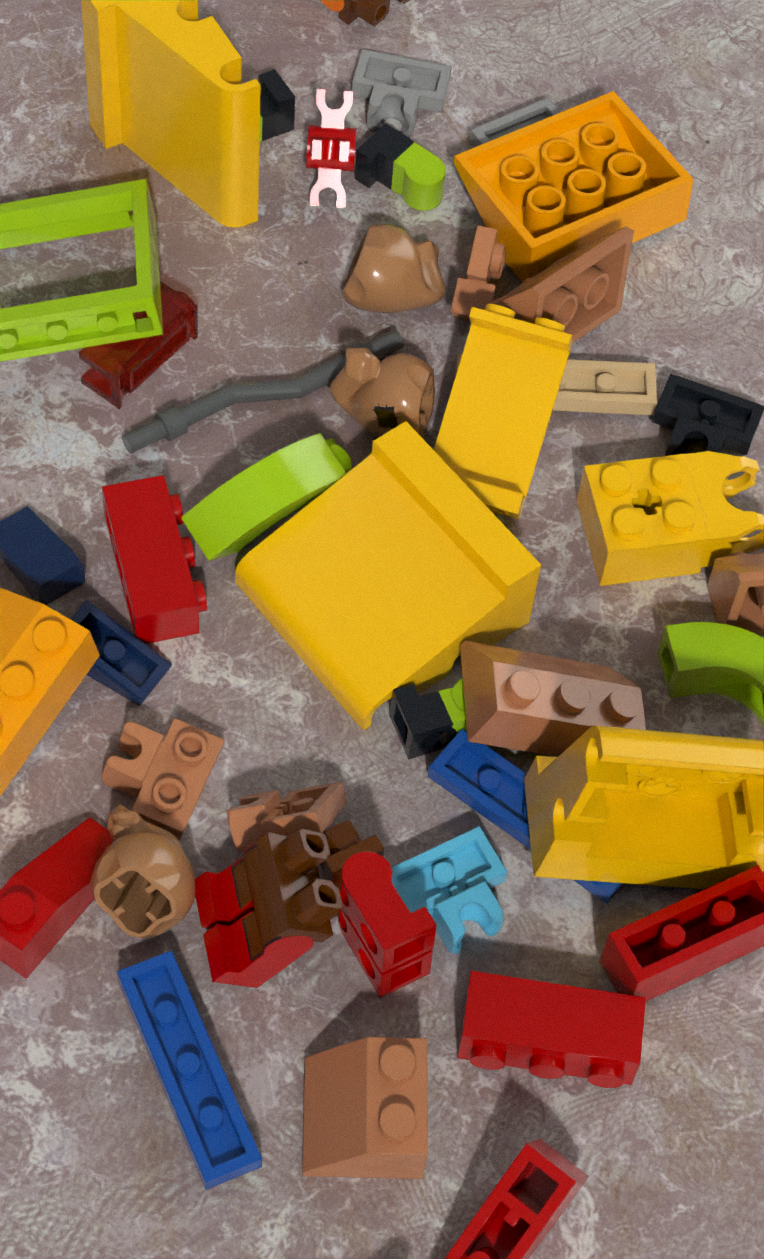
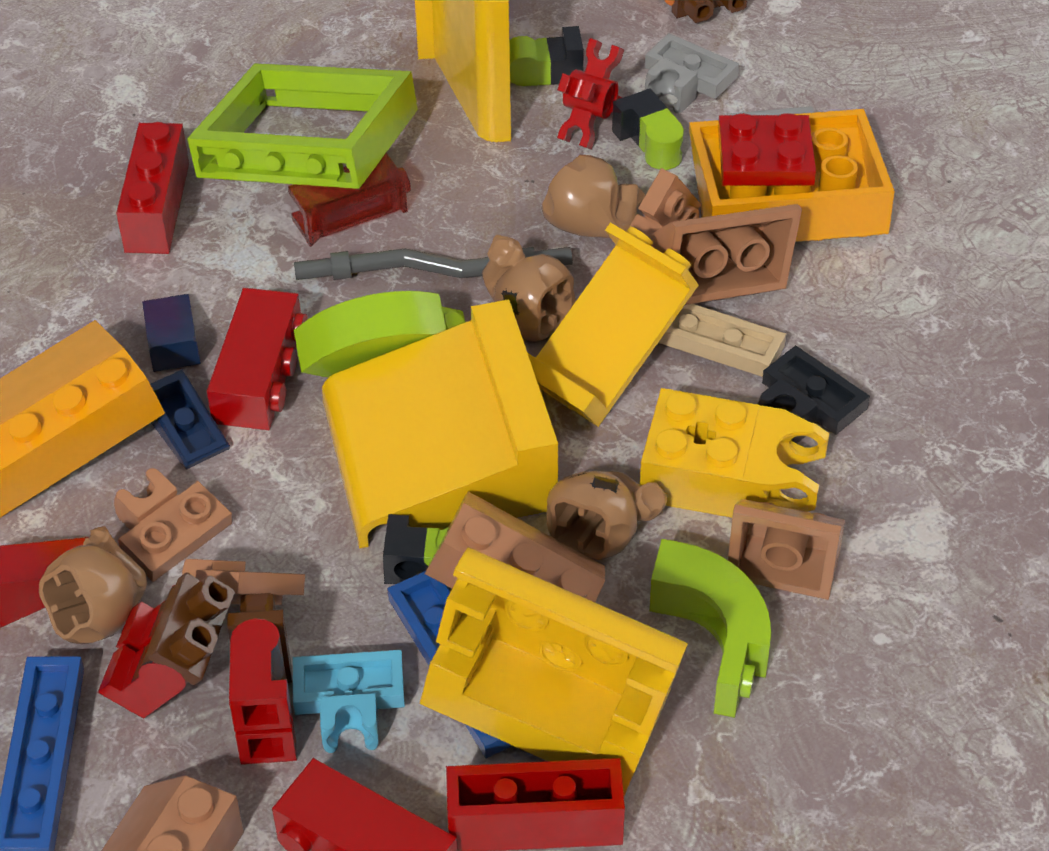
camera: 30 degrees right, 10 degrees down
(552, 169) = (766, 150): none -> red plate
(585, 613) = (600, 511): none -> medium nougat piece

